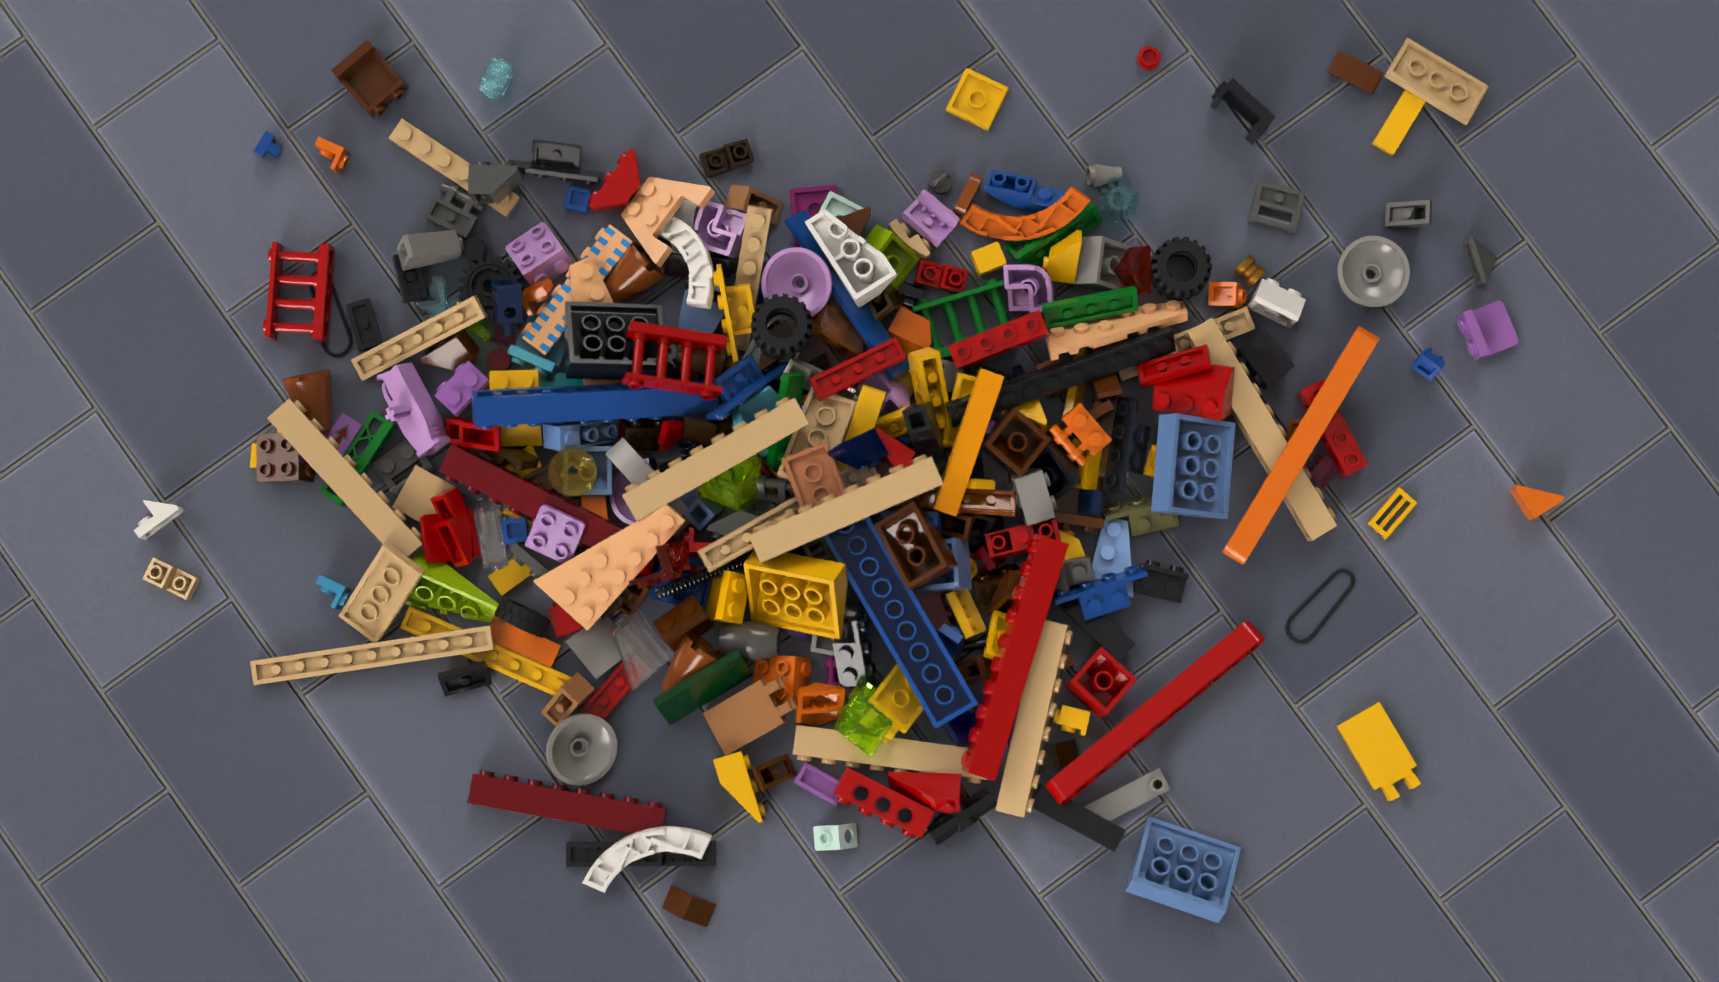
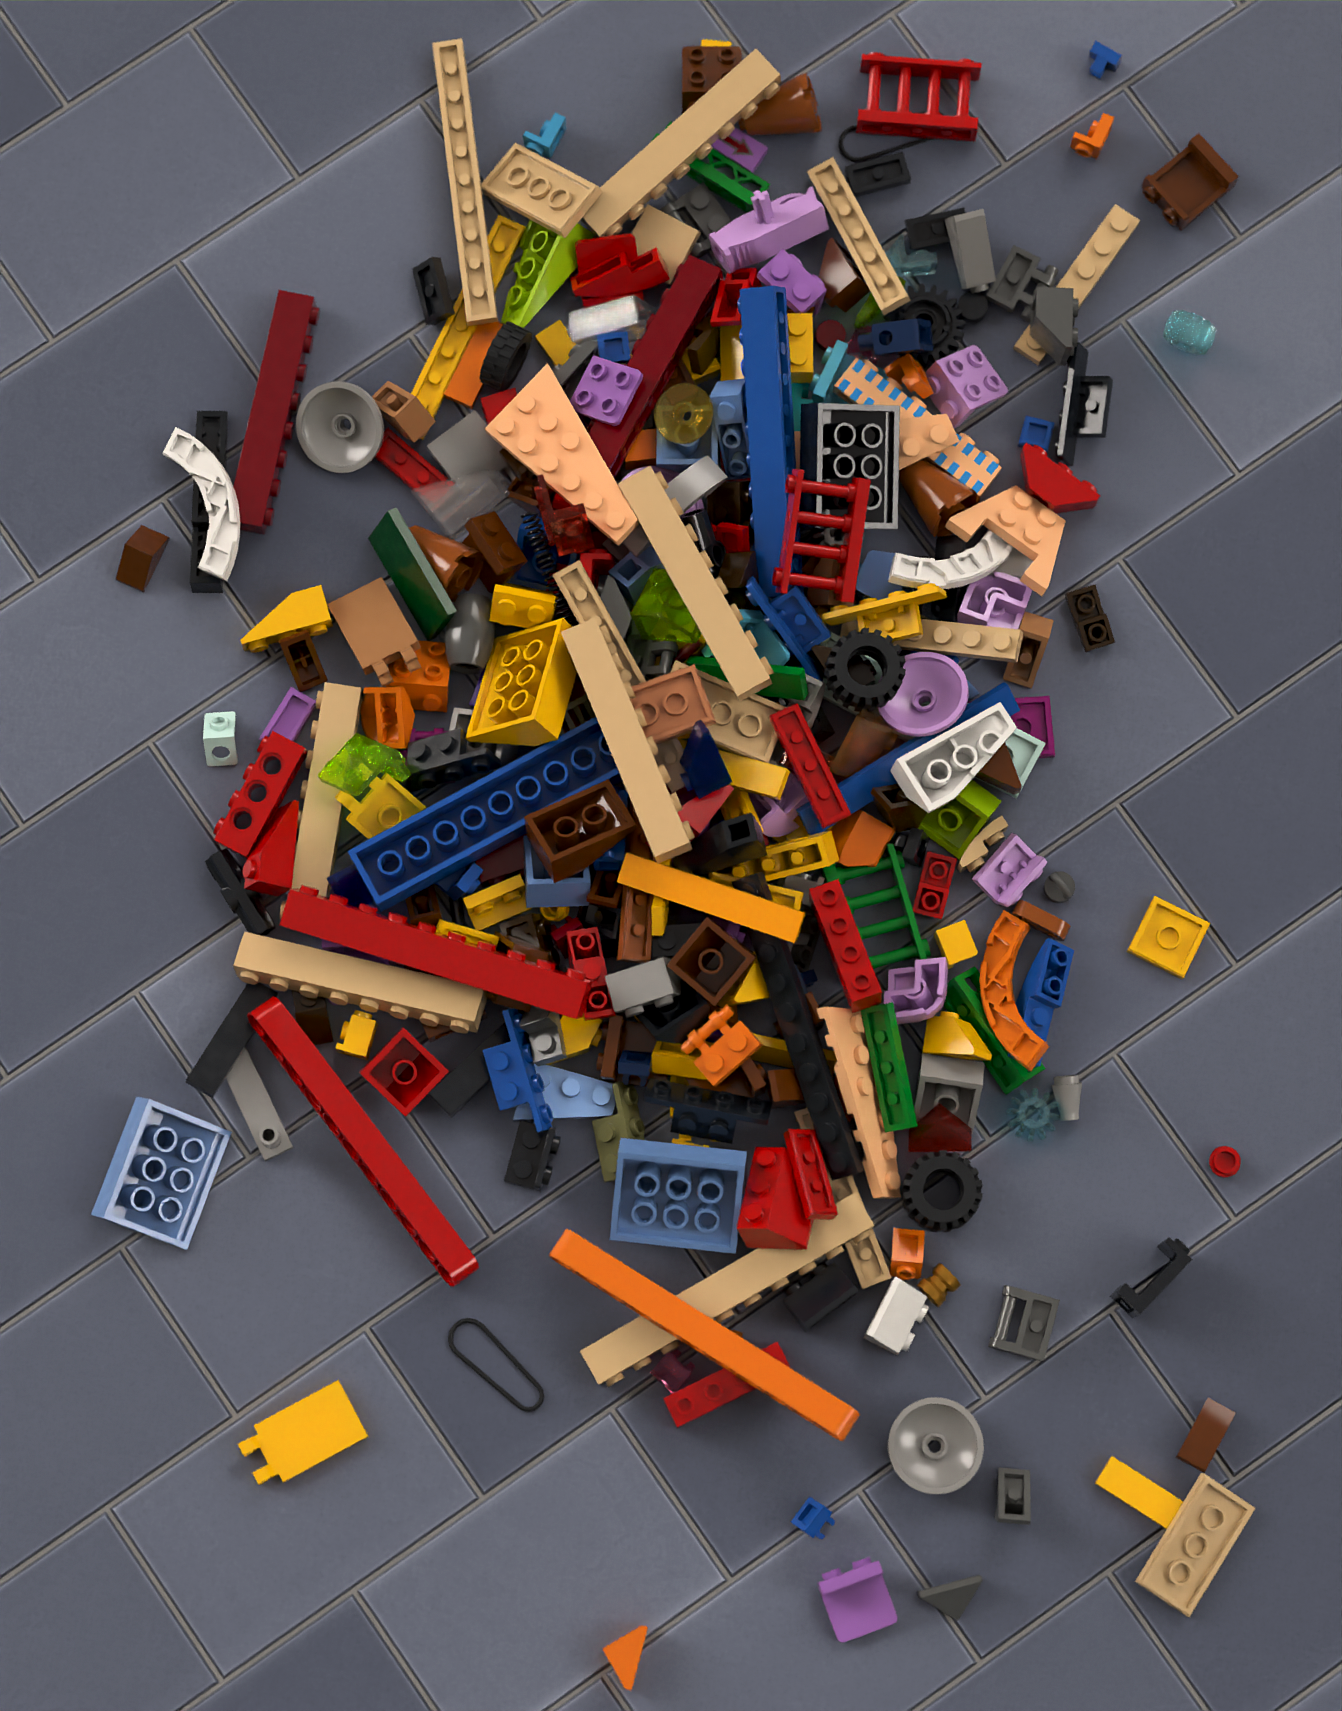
camera: 90 degrees right, 5 degrees down
(1379, 528) = (635, 1482): yellow tile -> none

